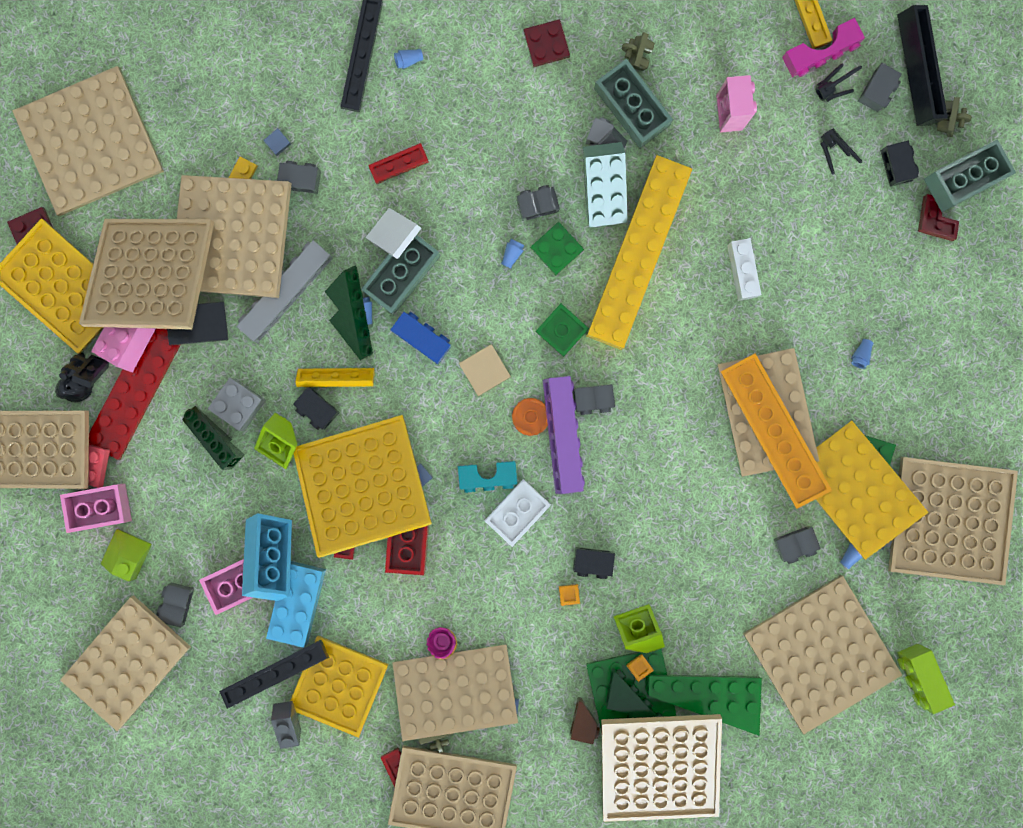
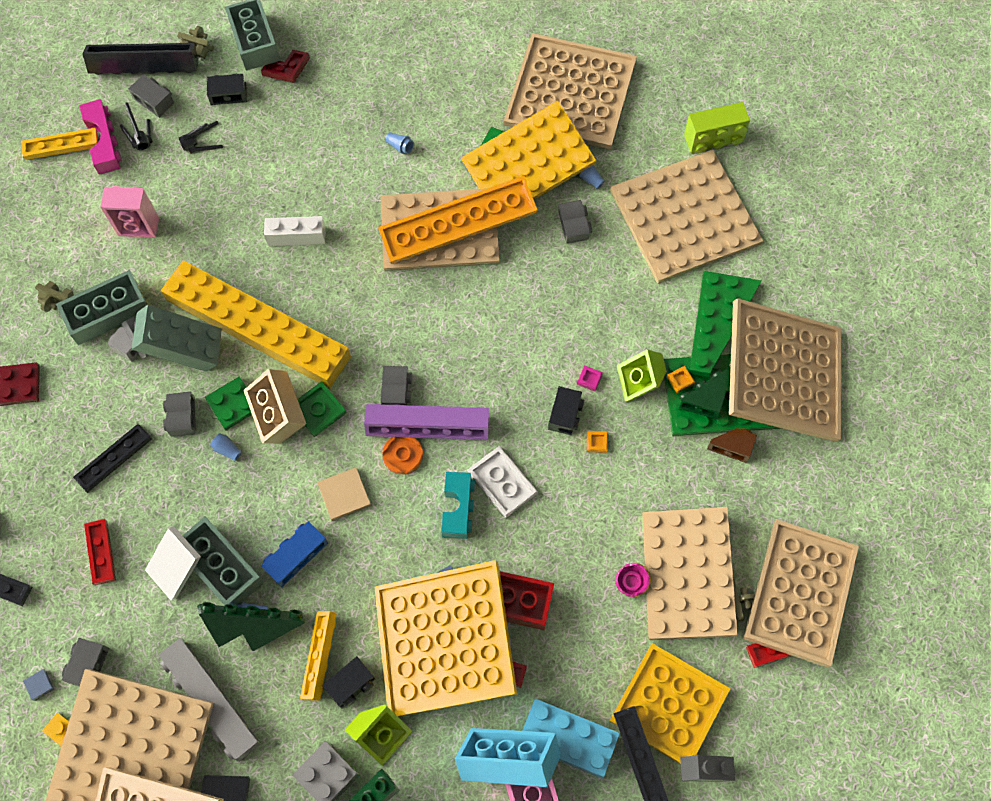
camera: 75 degrees left, 20 degrees down
(488, 151) = (112, 458): none -> black tile
(554, 291) = (274, 406): none -> tan brick
(631, 580) = (589, 378): none -> dark pink tile

